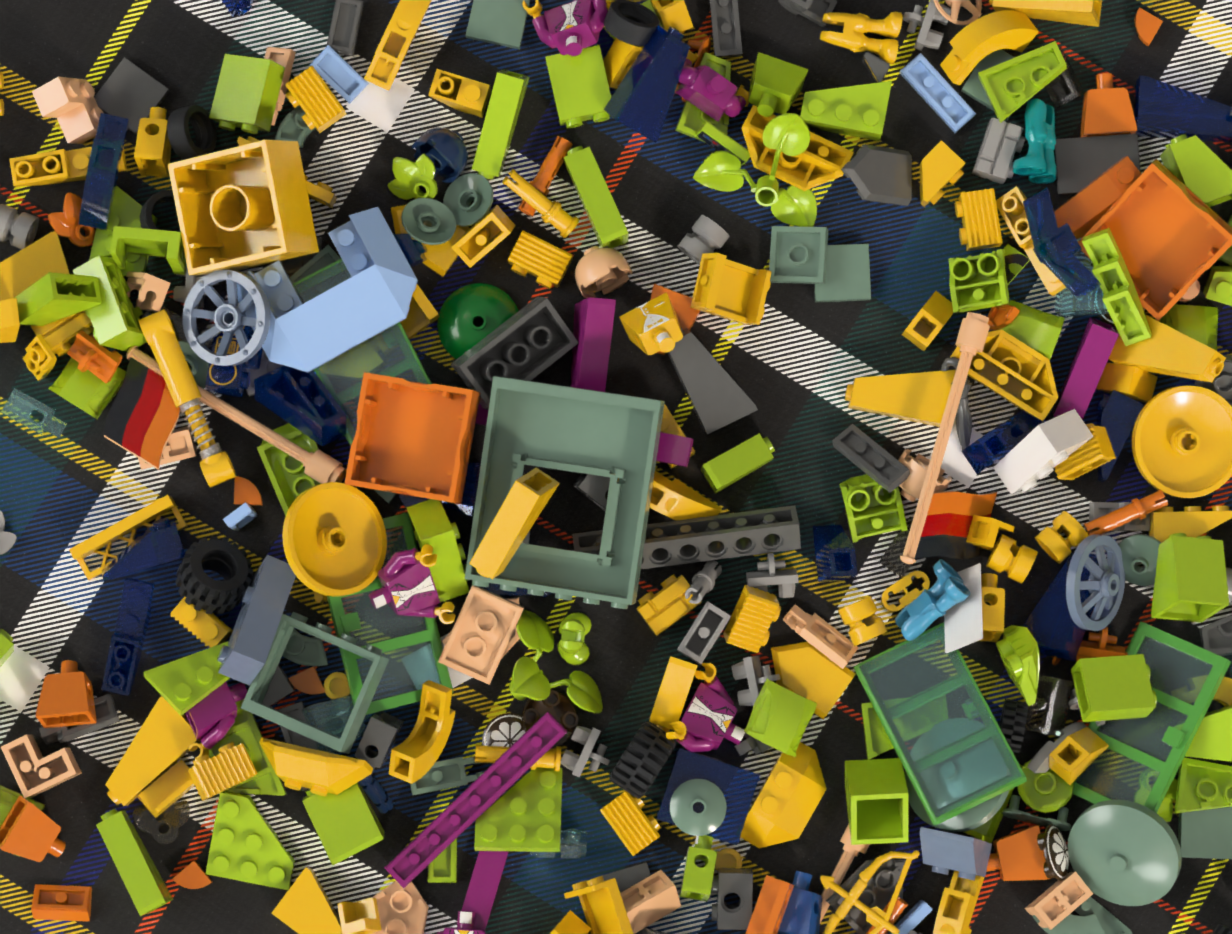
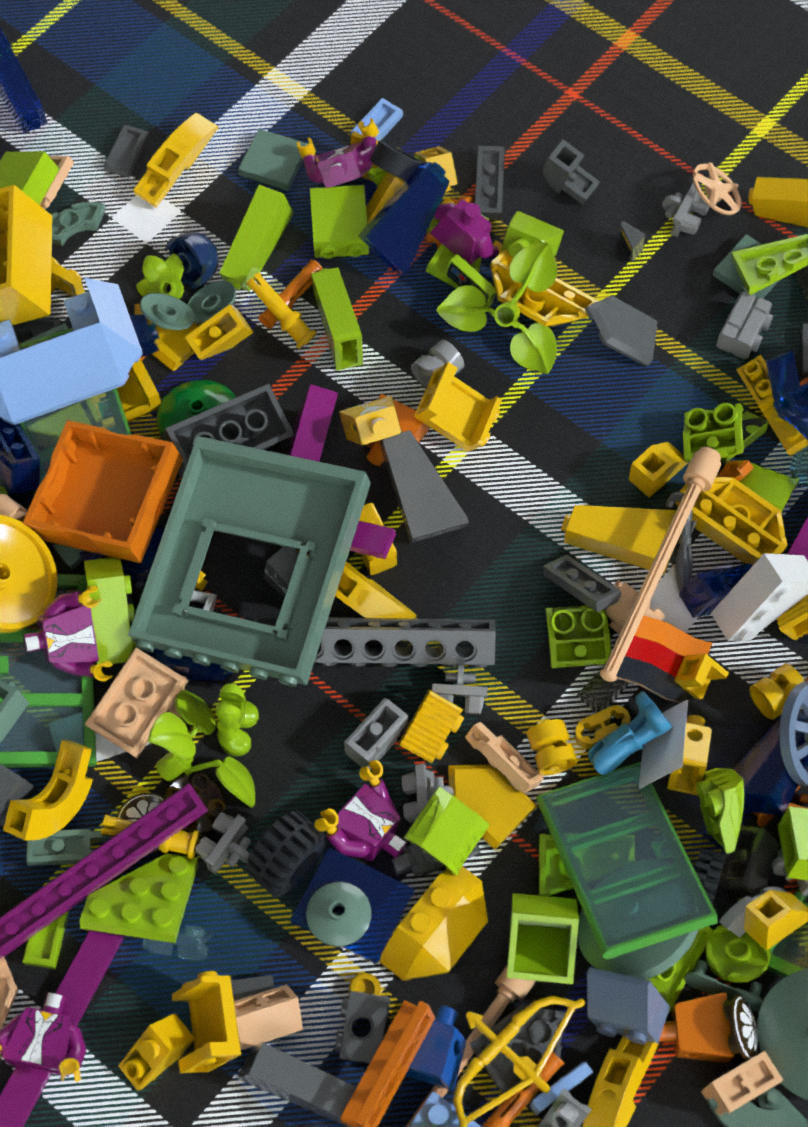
camera: 10 degrees right, 20 degrees down
(314, 99) = (81, 198): yellow brick -> none
(339, 74) = (111, 186): light blue tile -> none
(460, 92) = (220, 210): yellow slope -> none
(513, 522) = (187, 574): yellow slope -> none
(539, 259) = (271, 363): yellow brick -> none
(601, 270) = (335, 373): light nougat cylinder -> none
(630, 822) = (261, 926): yellow brick -> none
(667, 605) = (343, 703): yellow brick -> none
(672, 693) = (335, 783): yellow slope -> none
(697, 880) = (327, 990): lime torso -> none
(703, 582) = (384, 681): light grey pin -> none
(738, 462) = (438, 572): lime slope -> none
(798, 254) = (532, 391): sand green tile -> none
(834, 554) = (529, 677): slope -> none
(845, 274) = (573, 416): sand green tile -> none
(848, 110) = (600, 269): lime wedge -> none
(853, 33) = (611, 205): yellow piece -> none
(936, 171) = (683, 334): yellow slope -> none
(937, 93) = (689, 272): light blue tile -> none
(979, 220) = (719, 379): yellow brick -> none
(983, 36) = (740, 219): yellow arch -> none
(1011, 558) = (722, 706): yellow wheel -> none
(1041, 138) = (789, 314): teal piece -> none

